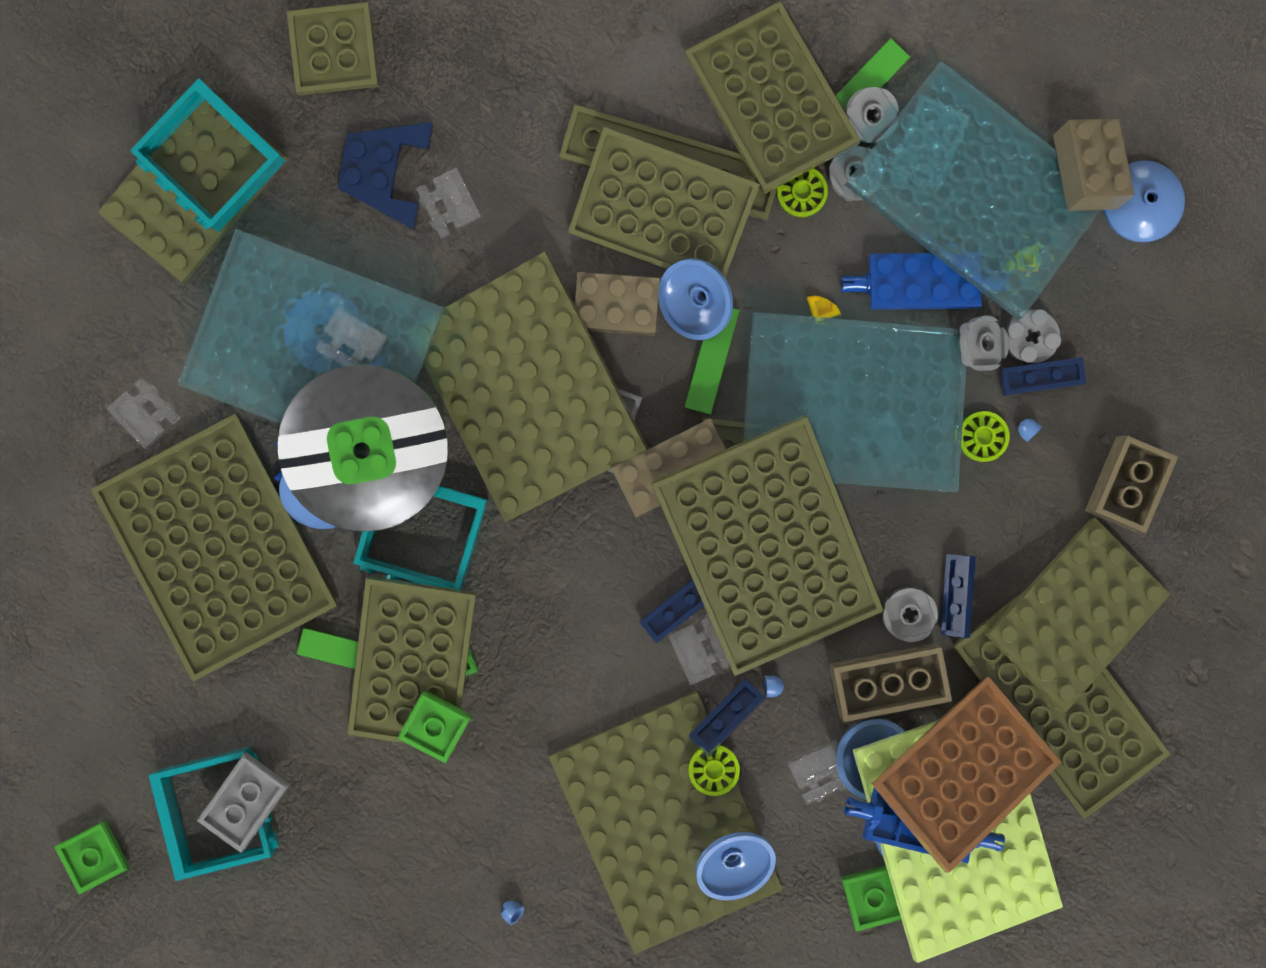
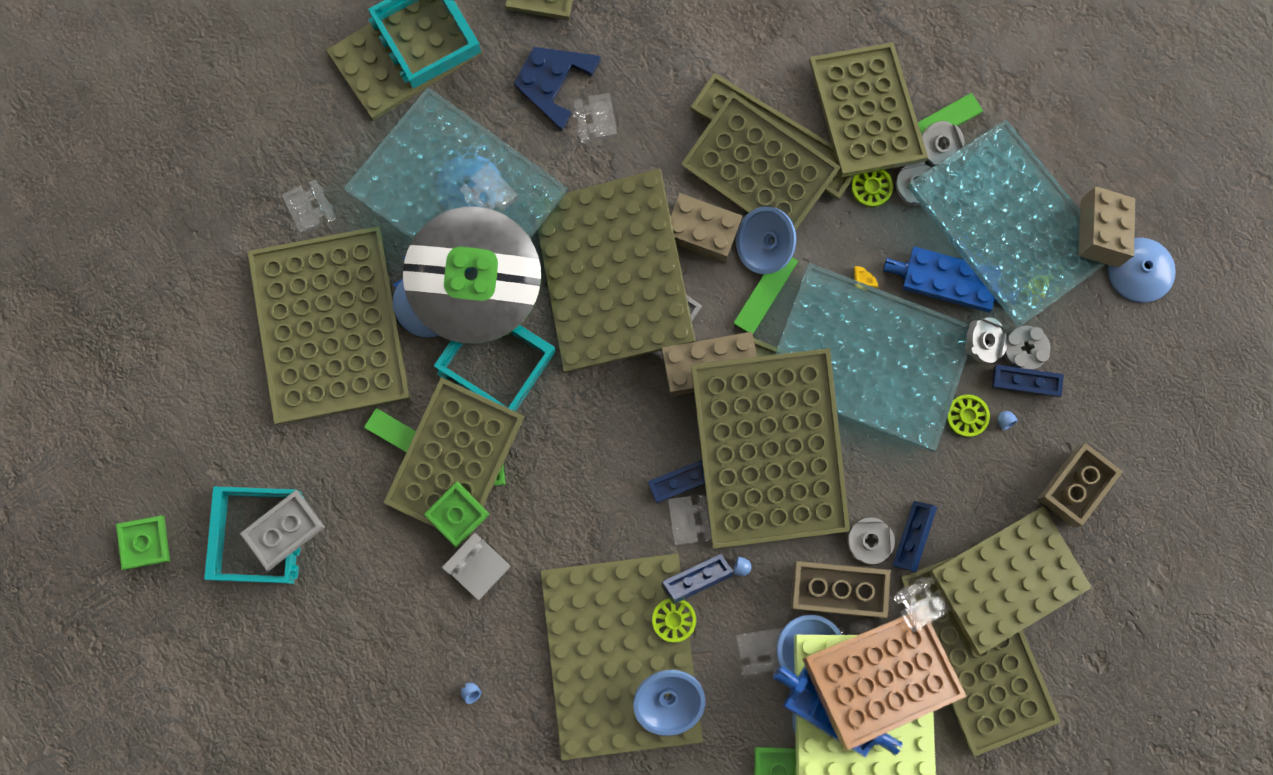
camera: 15 degrees right, 10 degrees down
(476, 773) = (476, 566): none -> light grey bracket
(992, 679) = (924, 611): none -> clear plate

